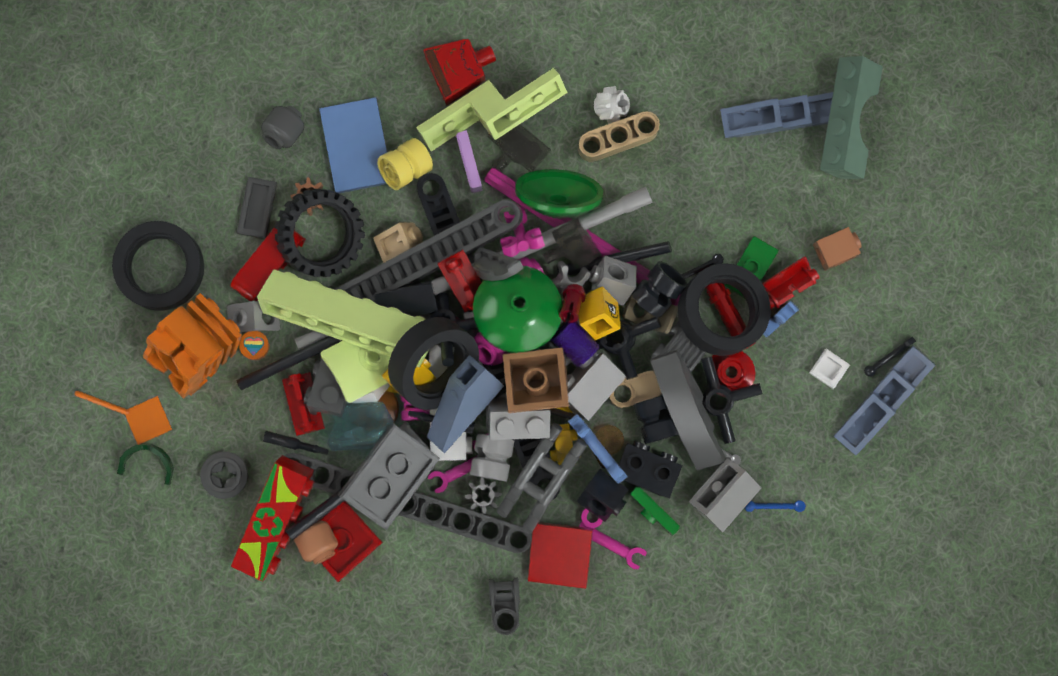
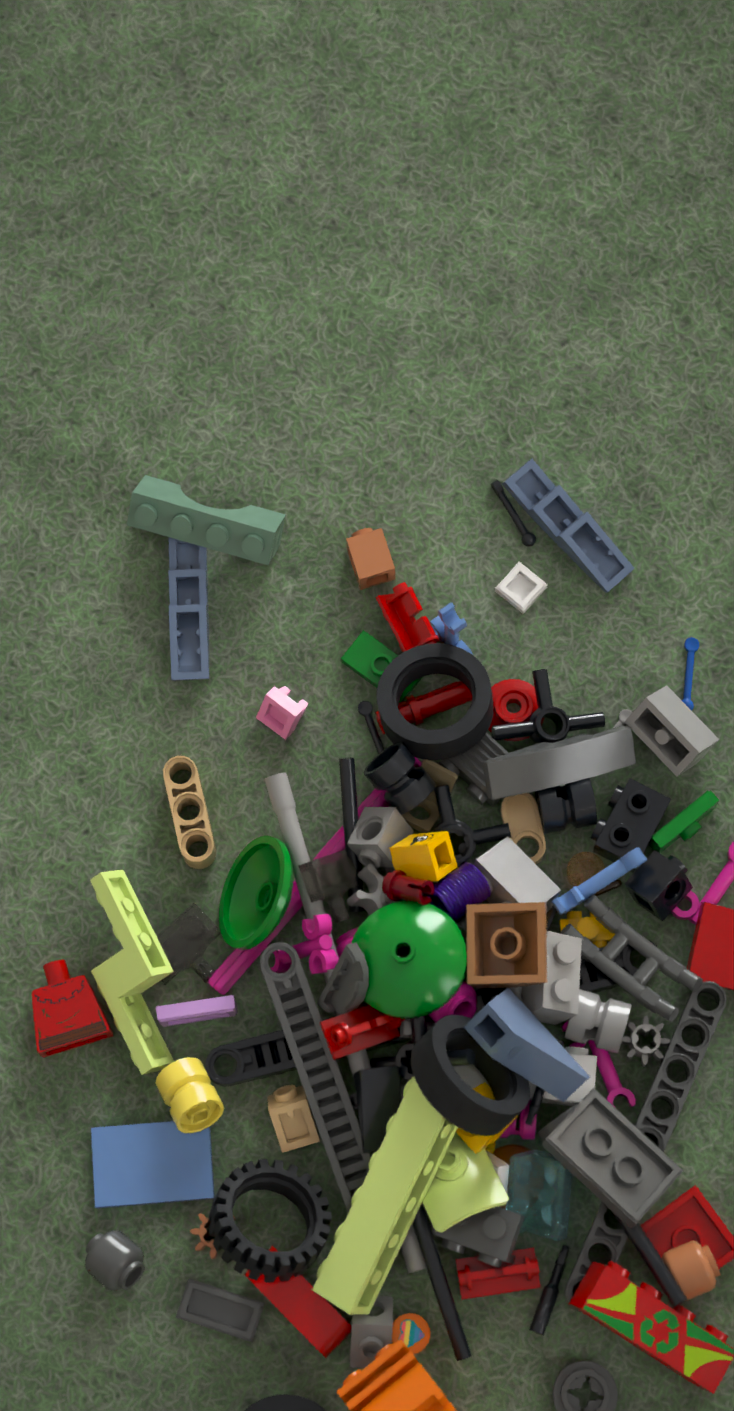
camera: 80 degrees left, 10 degrees down
(611, 104) = (146, 816): white gear -> none
(705, 194) = (281, 712): none -> bright pink tile

